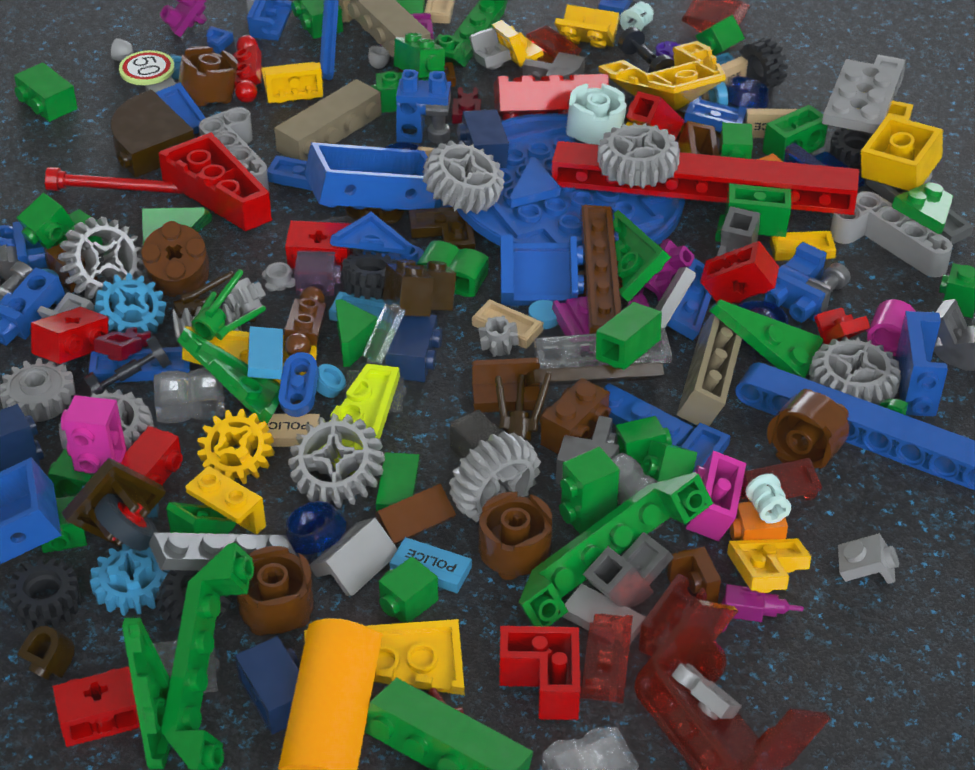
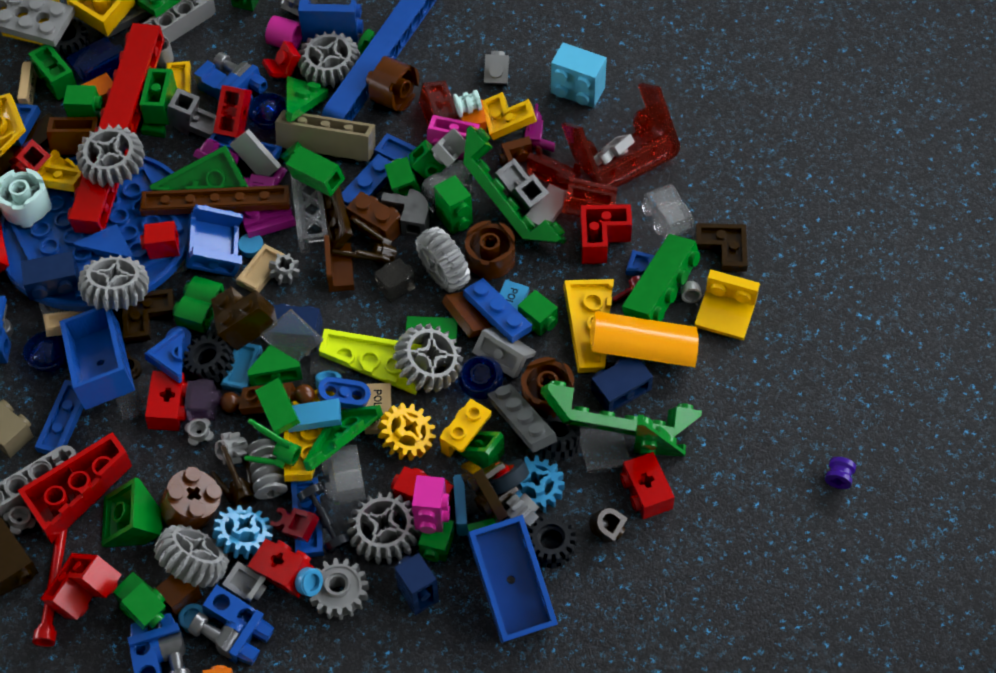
camera: 90 degrees left, 15 degrees up
(38, 348) = (309, 581): none -> dark azure tile
(80, 545) = (523, 506): none -> light grey gear
(96, 189) = (78, 582): none -> red brick
(275, 314) = (277, 406): none -> green tile
(414, 538) = (497, 310): none -> blue plate
(499, 721) = (638, 263): none -> blue tile
(531, 218) = (160, 240): none -> red brick
(671, 463) = (449, 148): none -> light grey bracket
(683, 339) = (286, 154): none -> green tile
(848, 645) = (578, 75): none -> medium azure brick

